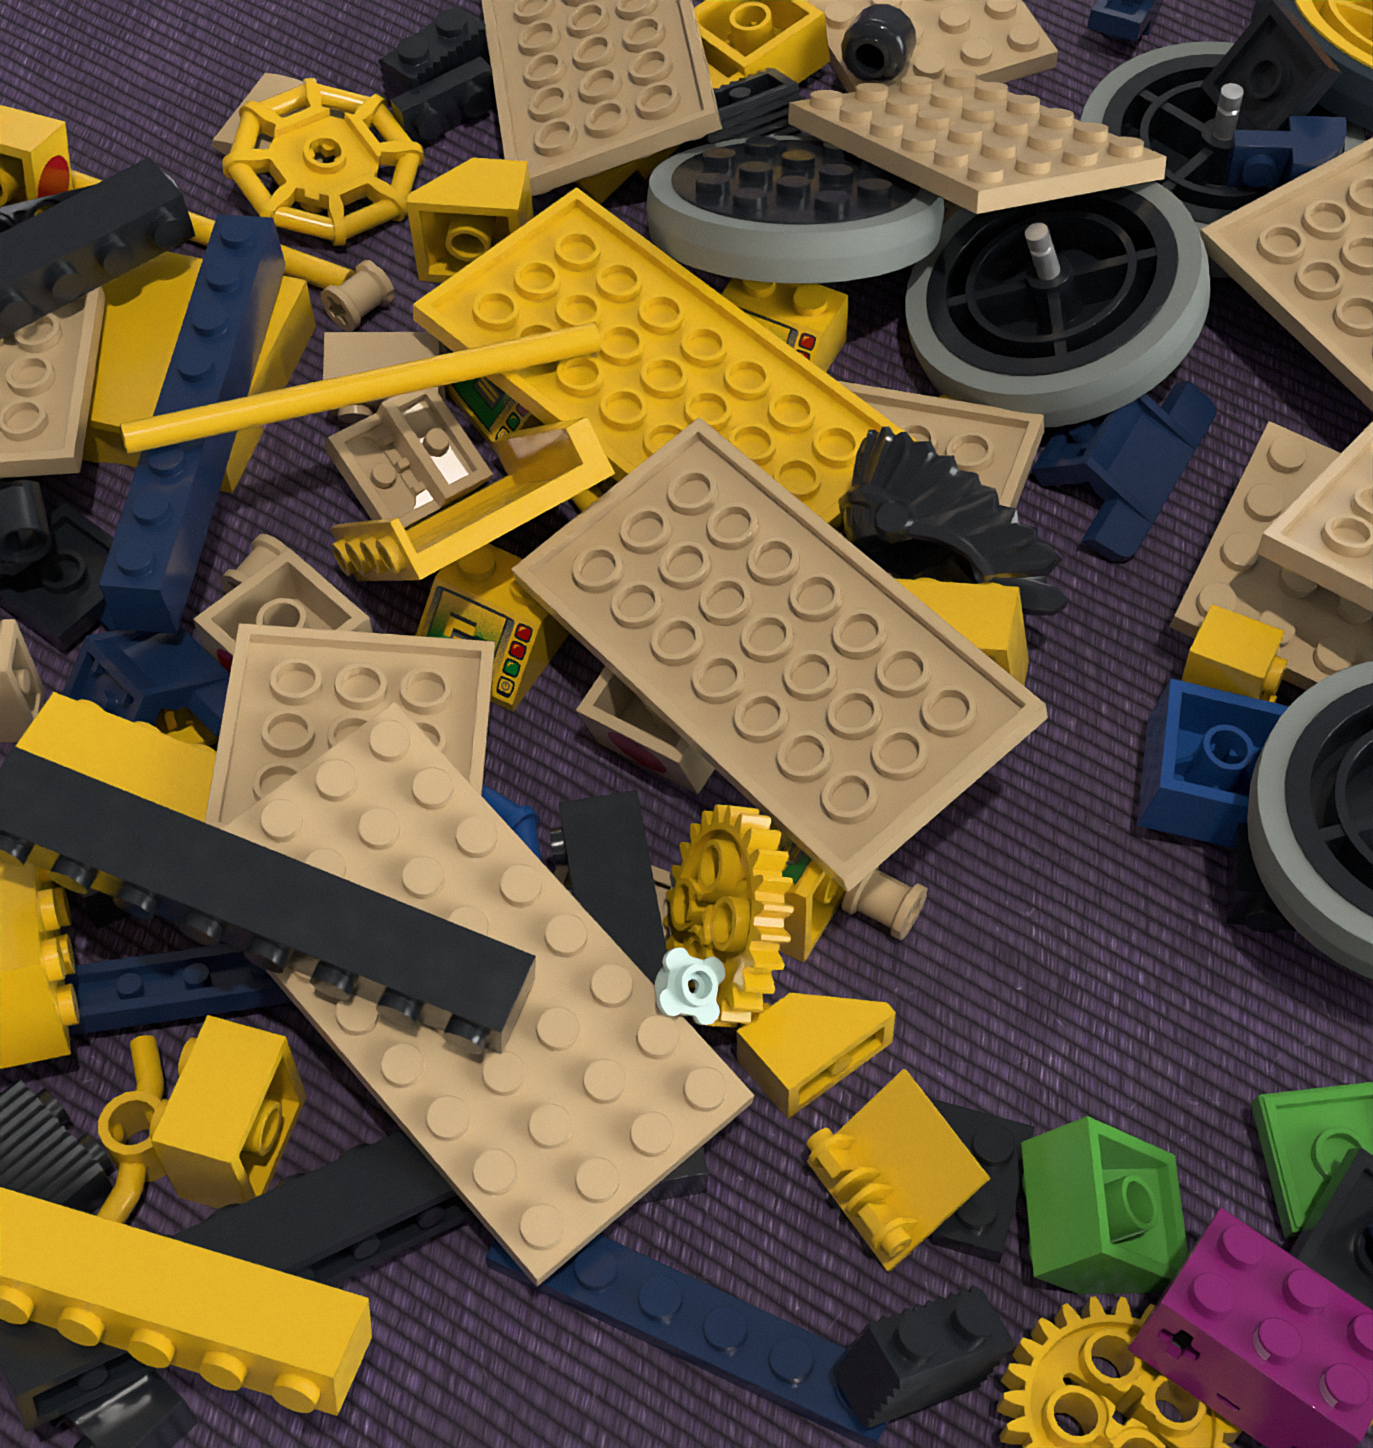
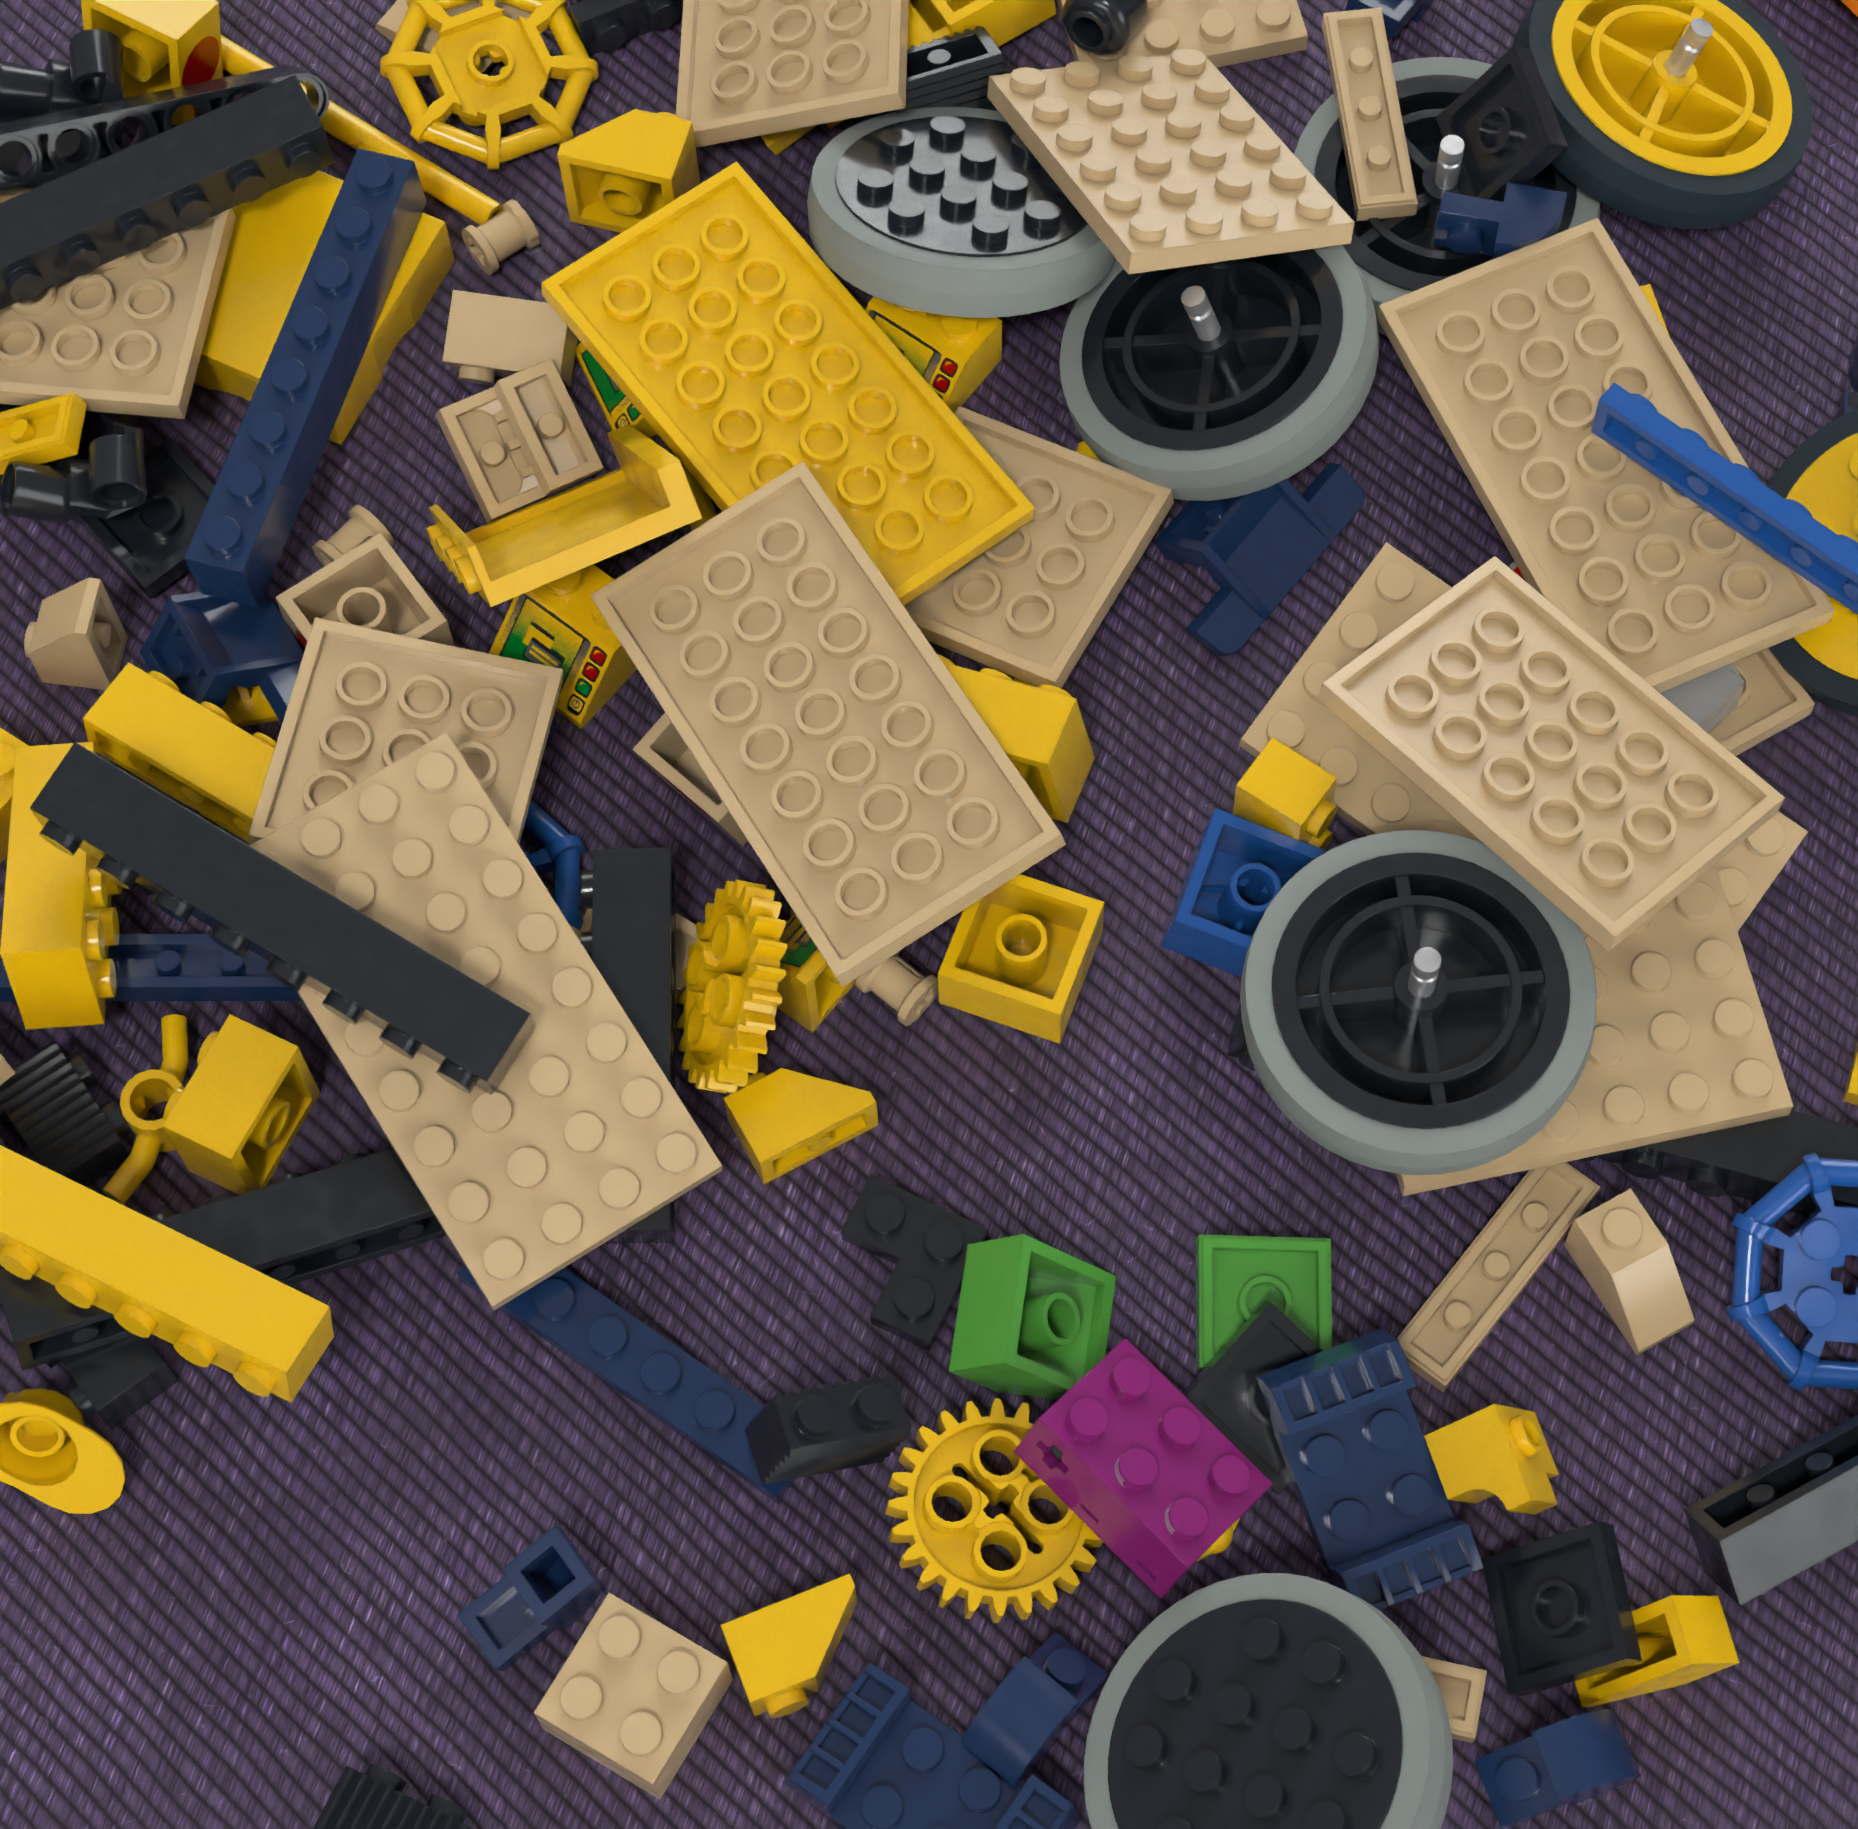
camera: 10 degrees right, 10 degrees up
(358, 388) = (473, 377): yellow piece -> none
(672, 986) = (661, 1052): light aqua plate -> none
(896, 1169) = (845, 1251): yellow hinge -> none
(939, 523) = (1009, 609): black piece -> none
(1007, 851) = (1022, 956): none -> yellow brick
(1139, 87) = (1369, 114): none -> tan tile

